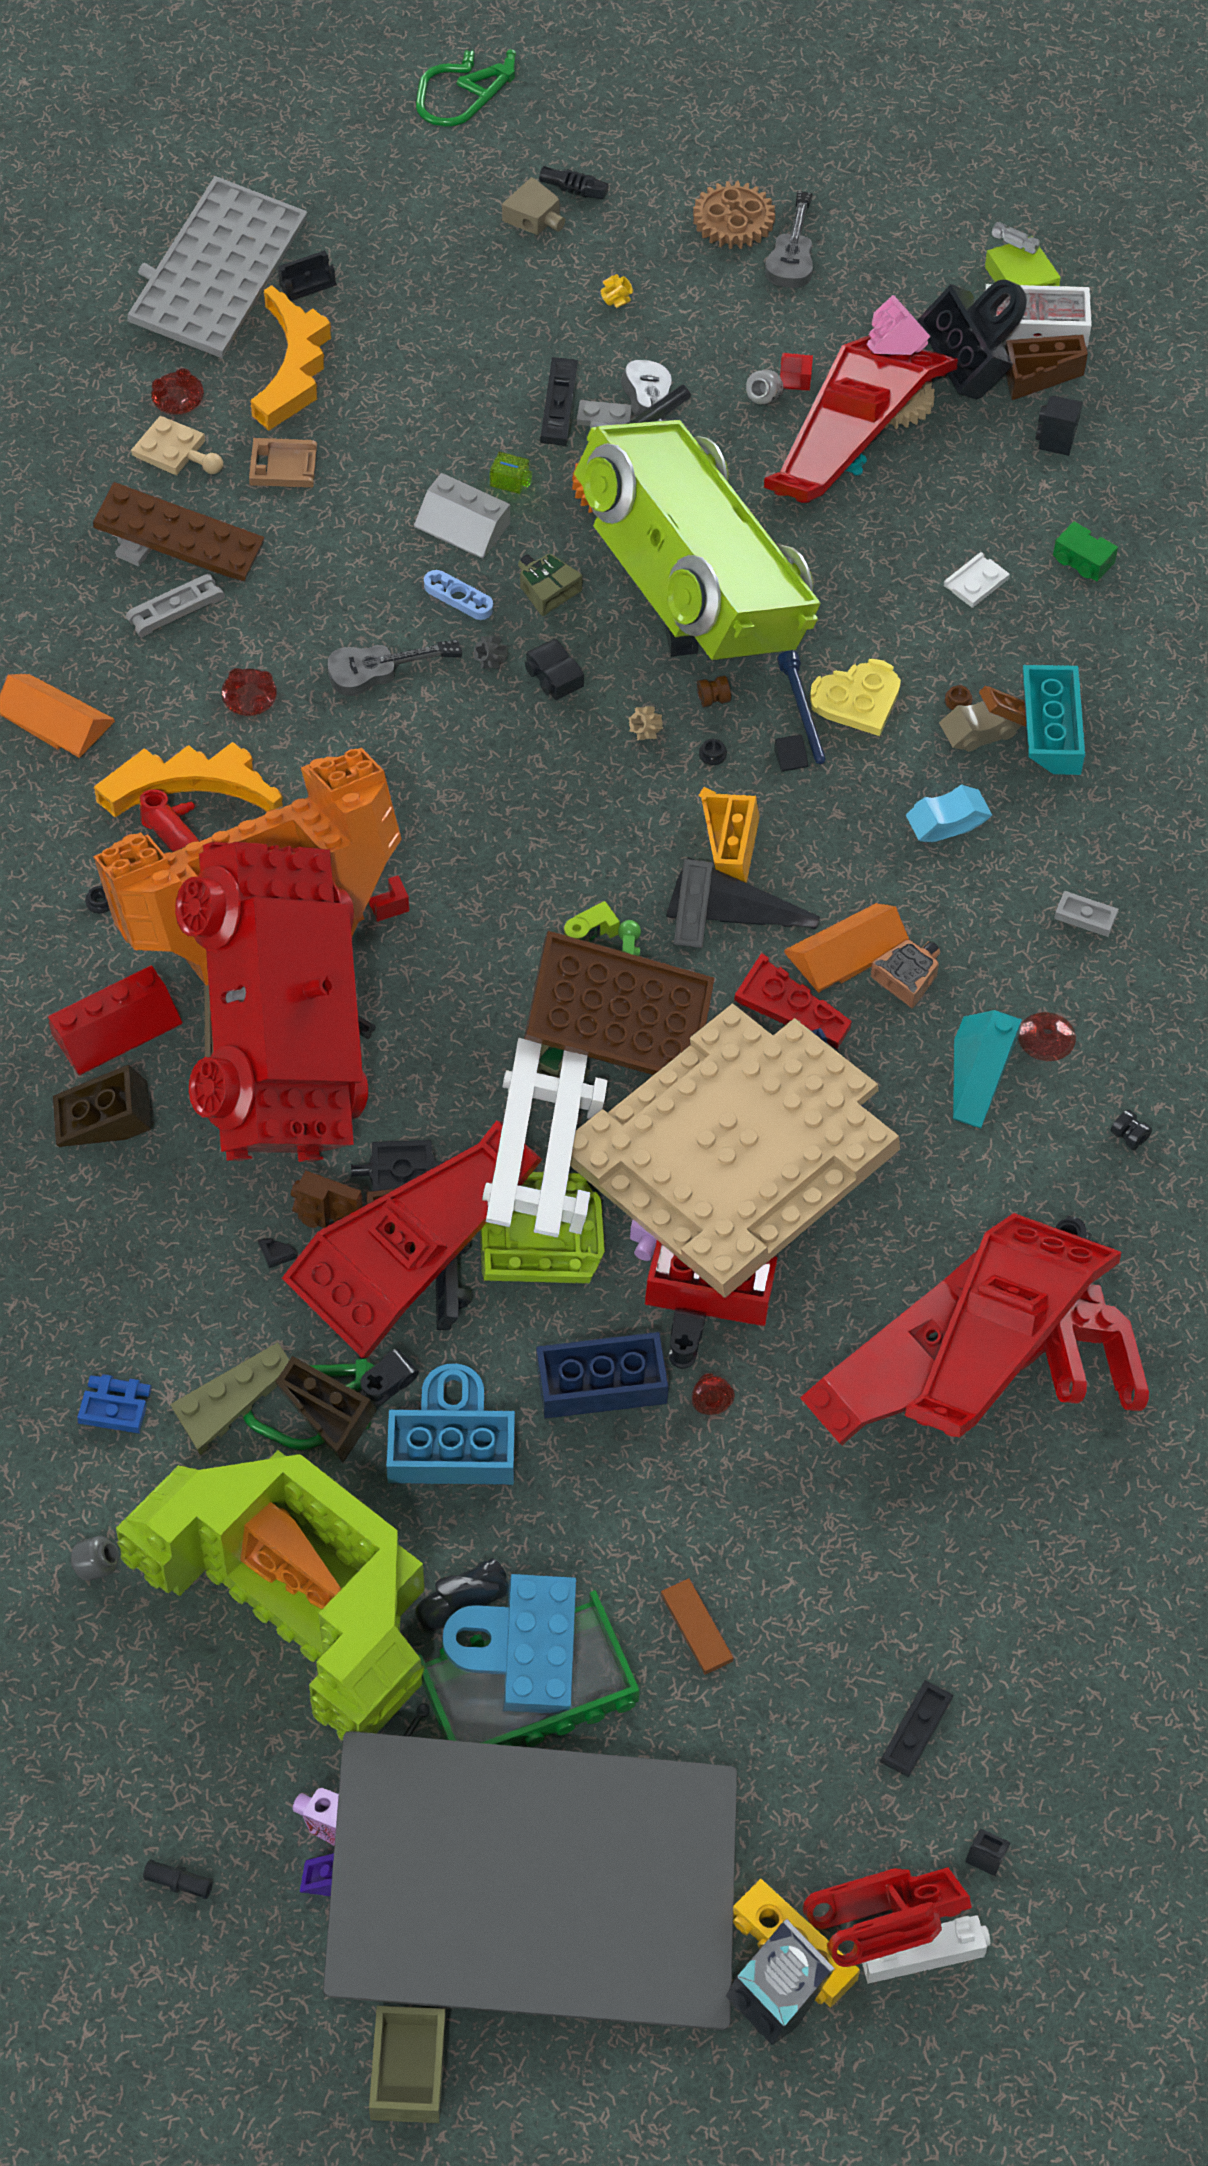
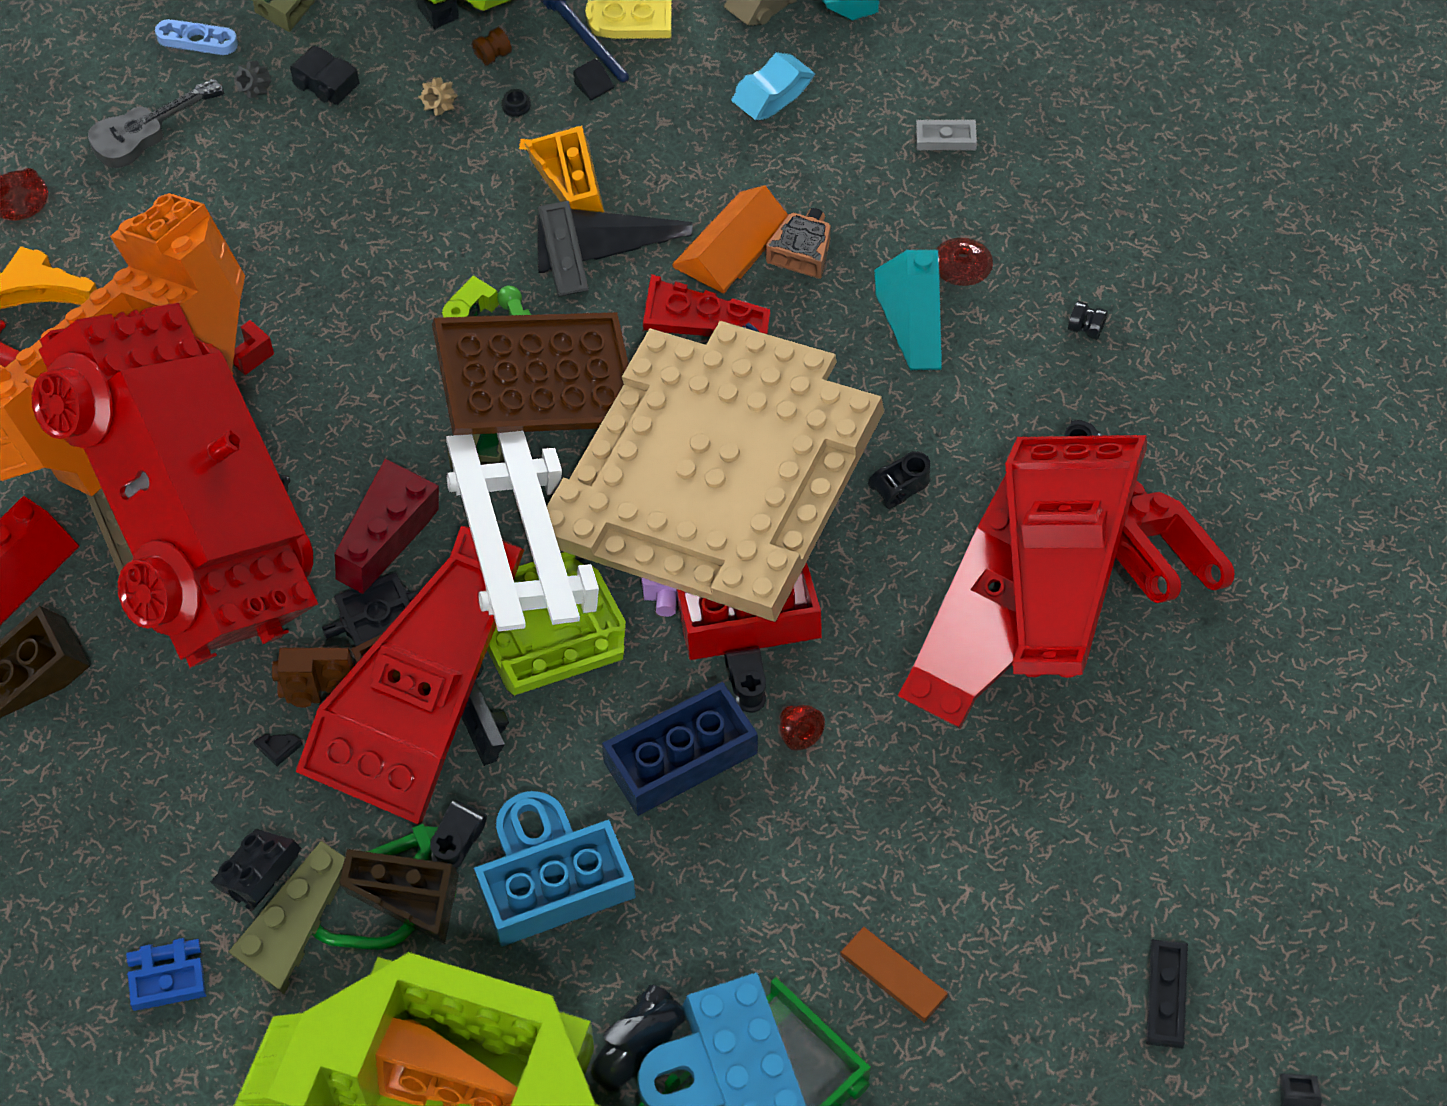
camera: 20 degrees left, 0 degrees up
(218, 1343) = (256, 867): none -> black plate
(437, 1095) = (384, 524): none -> dark red wedge
(895, 1215) = (896, 481): none -> black piece

